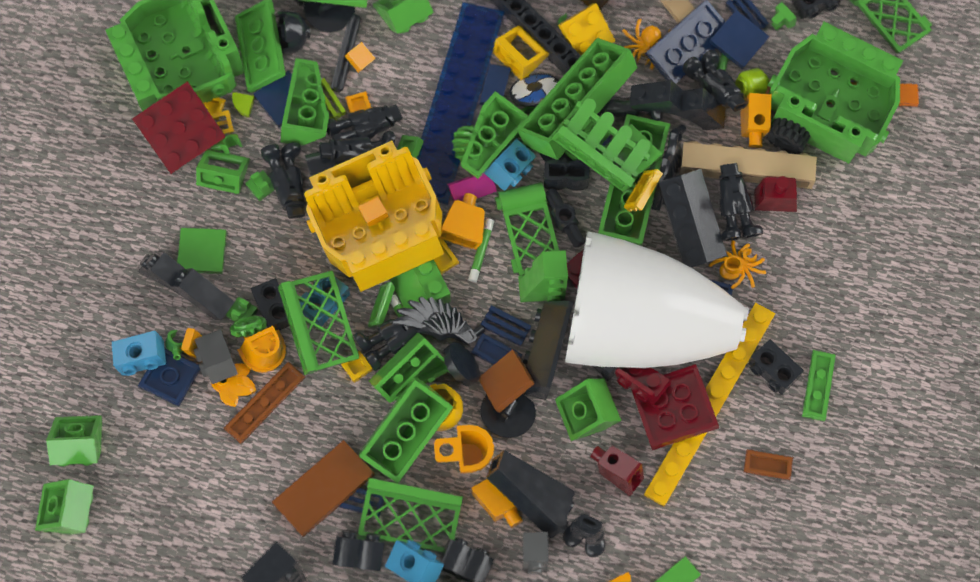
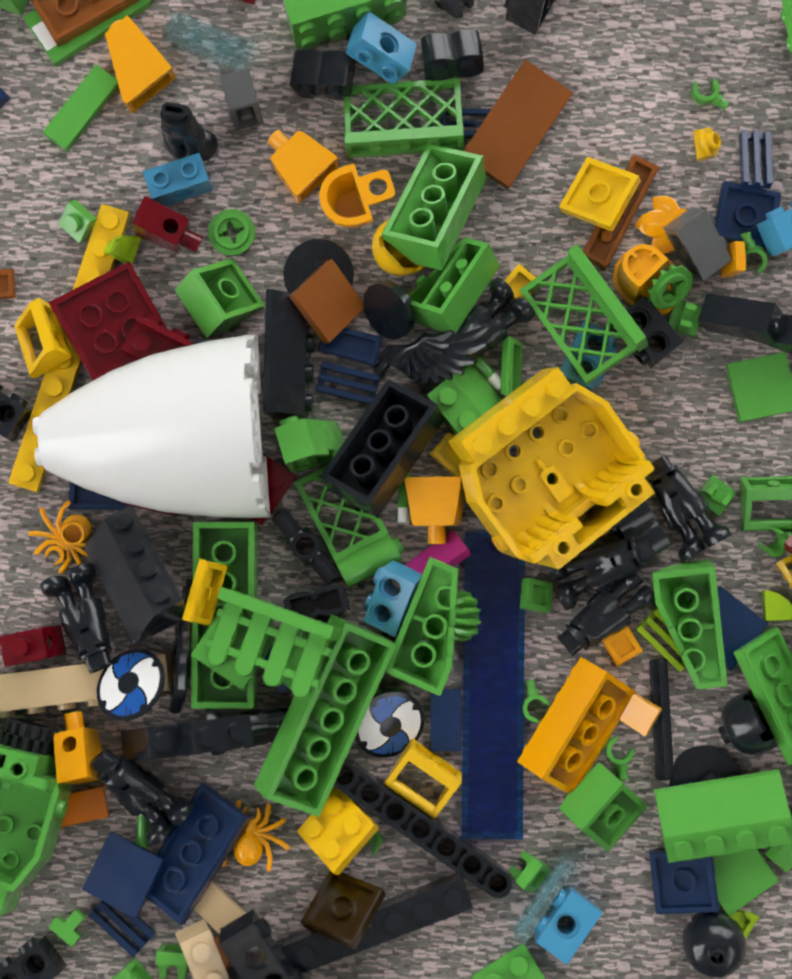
camera: 170 degrees right, 15 degrees up
(139, 414) = (756, 138): none -> tile
(162, 471) = (716, 98): none -> bright green piece
(181, 437) = (706, 143): none -> yellow plate
(276, 414) = (600, 194): none -> yellow plate
(373, 211) = (556, 478): light orange tile -> none
(382, 32) = (620, 764): none -> bright green piece
(406, 60) = (576, 726): none -> light orange slope
(431, 86) = (532, 695): none -> bright green piece
(492, 263) = (383, 448): none -> black brick
(532, 492) = (256, 163): black slope -> none
(575, 451) = (219, 227): none -> bright green gear
(601, 503) = (178, 180): none -> dark azure brick
(654, 465) = (123, 248): none -> lime tile
(686, 494) = (77, 221): none -> bright green plate
(708, 146) = (130, 685): none -> shield
(722, 407) = (51, 334): none -> yellow tile
(752, 81) = (92, 805): lime head -> none

